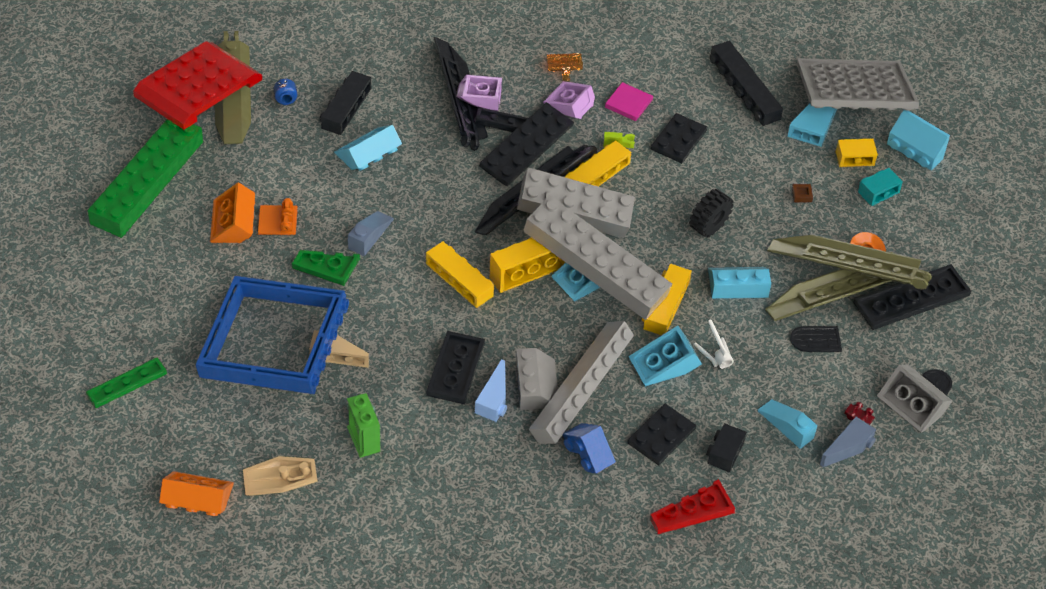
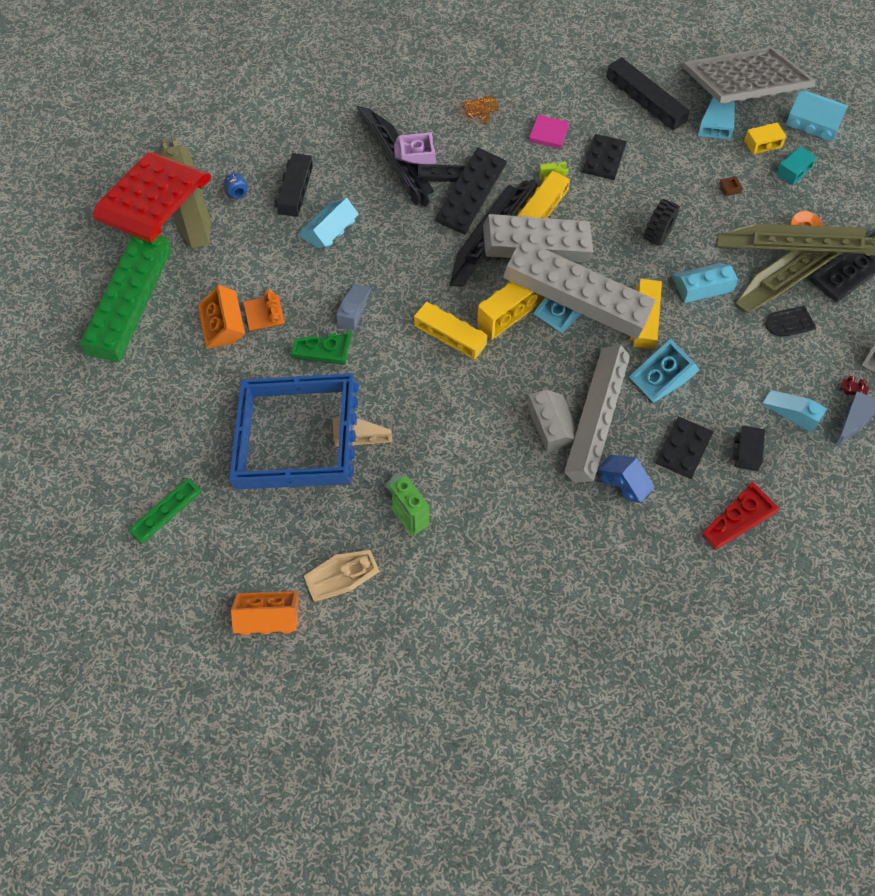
camera: 10 degrees left, 10 degrees up
(455, 367) = (475, 424): black plate -> none
(492, 398) = (521, 444): light blue slope -> none
(572, 99) = (498, 139): lavender slope -> none
(722, 356) = (715, 359): white plant -> none

